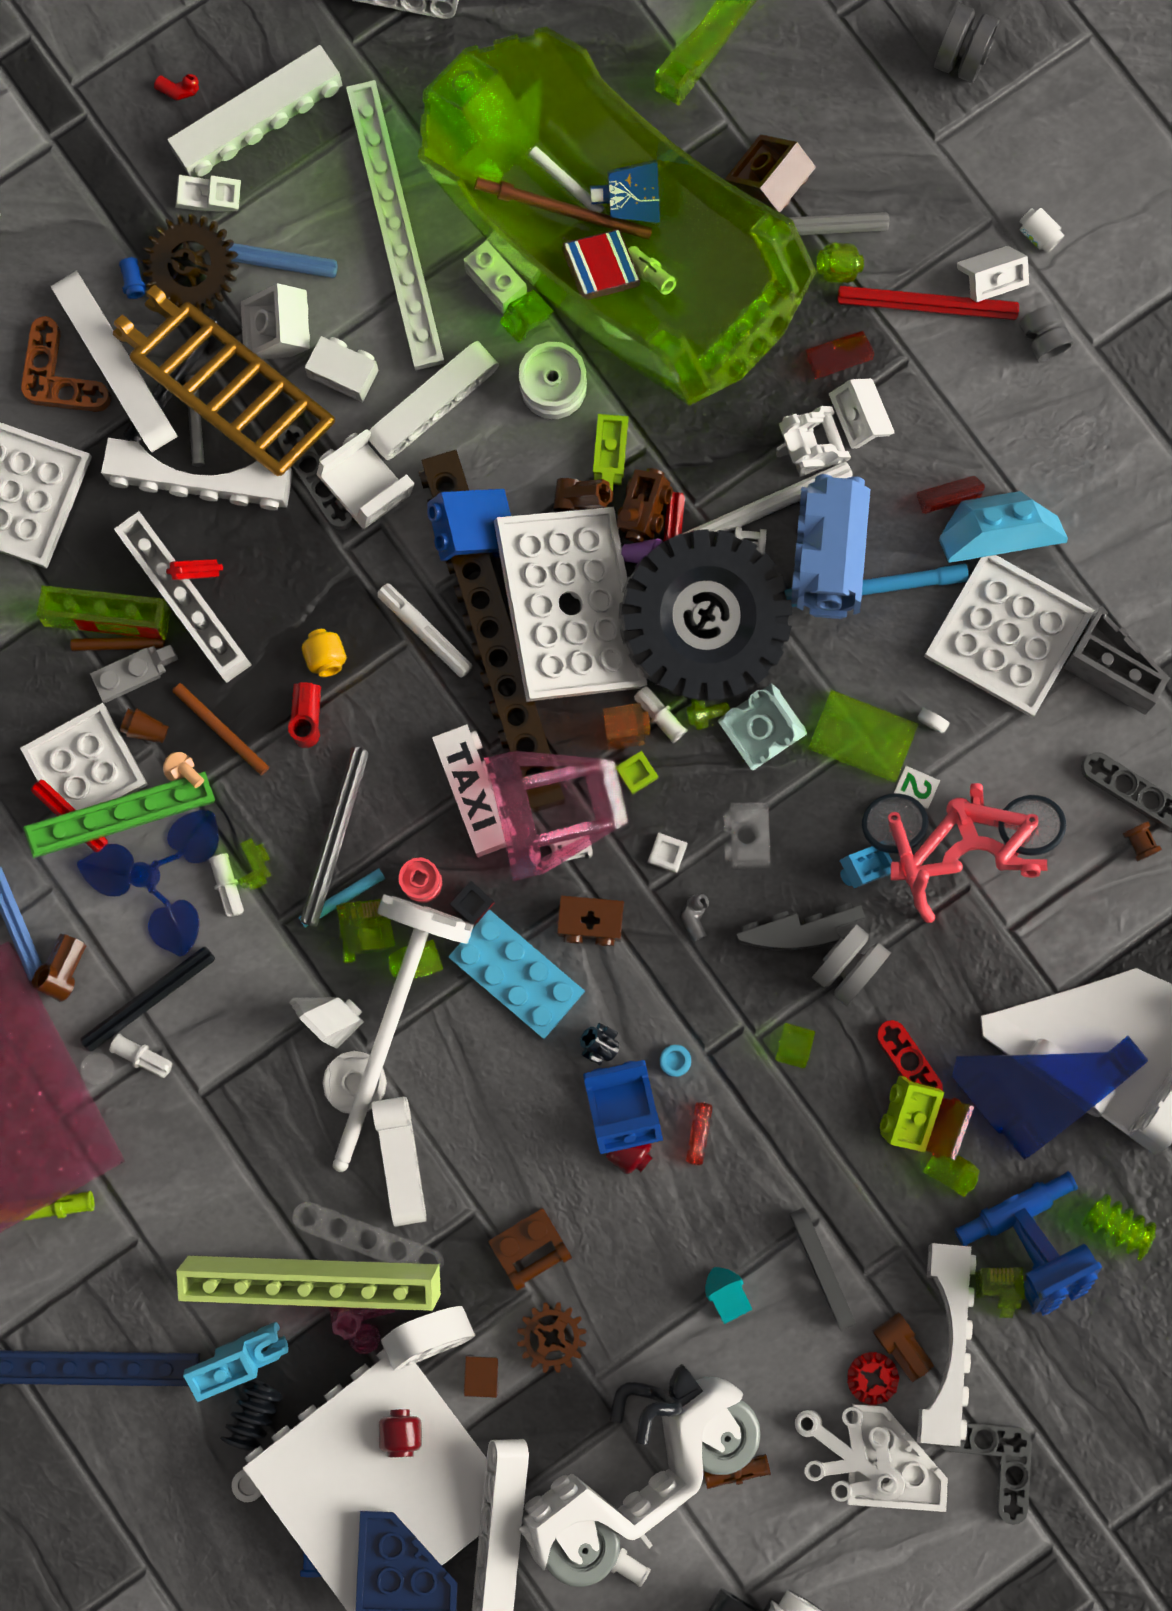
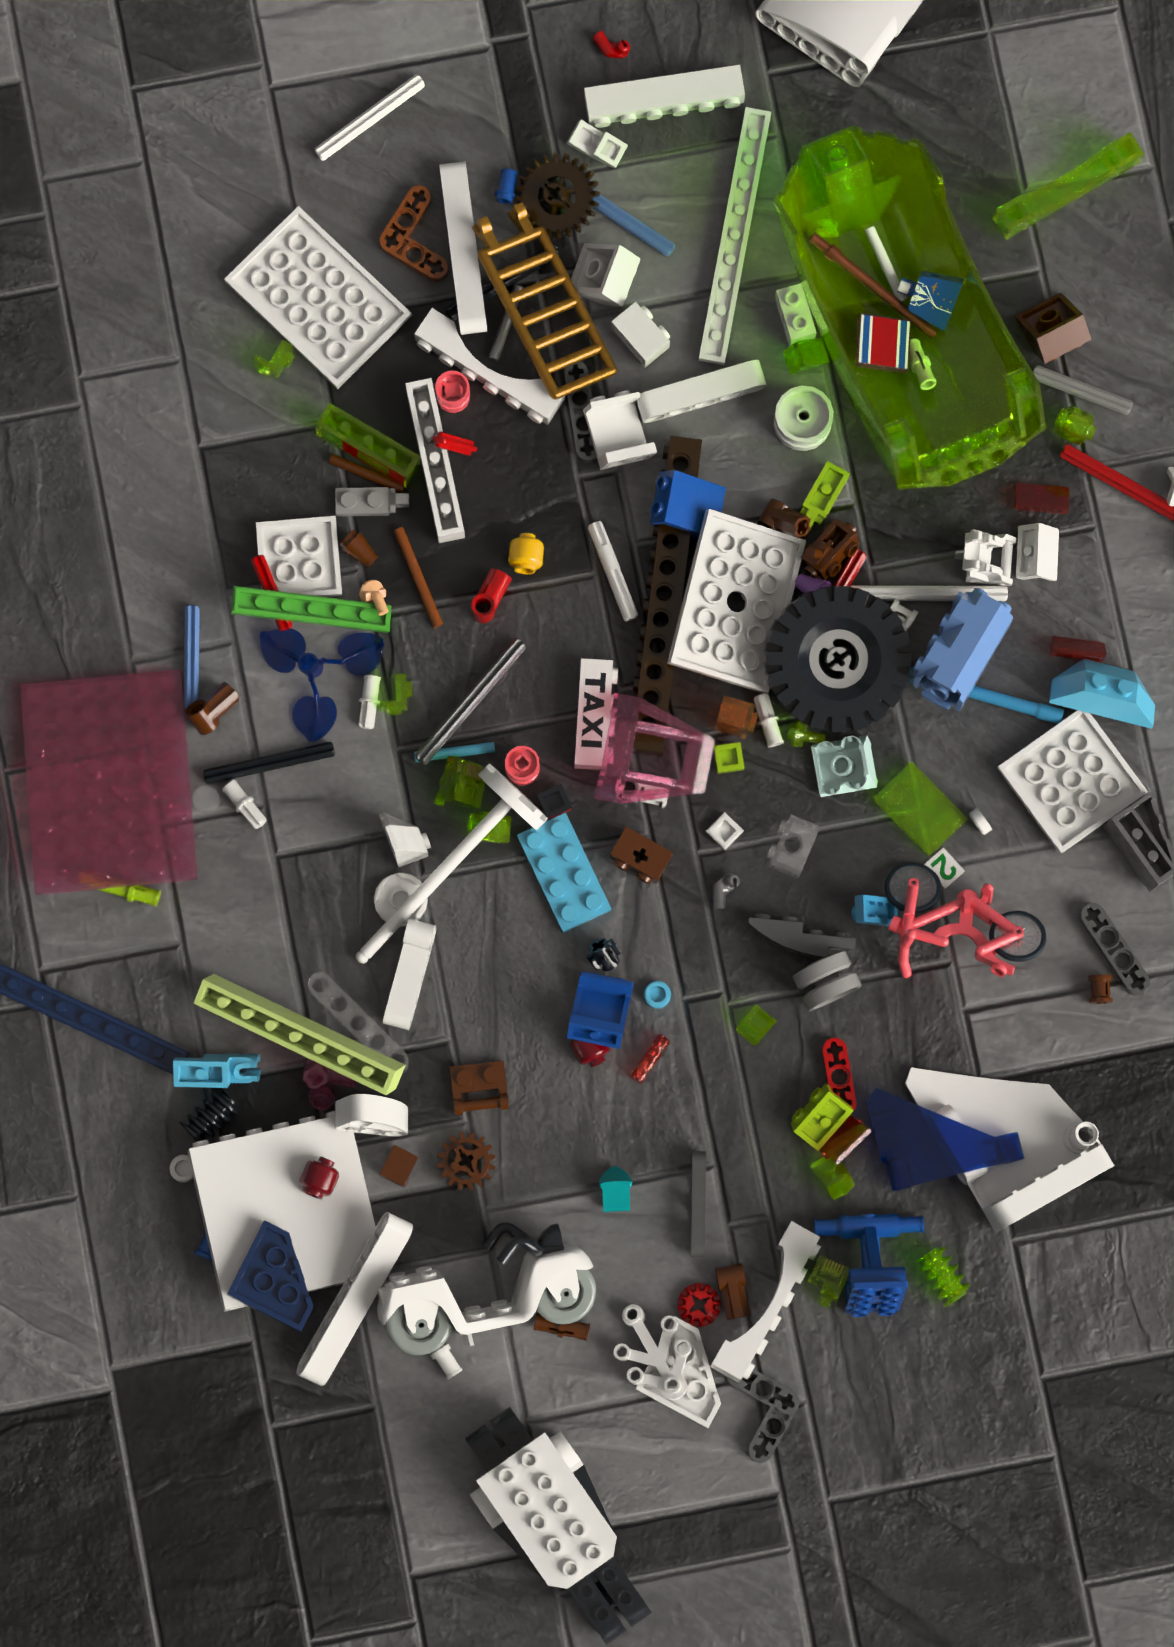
camera: 15 degrees right, 0 degrees up
(169, 516) = (452, 391): none -> coral wheel

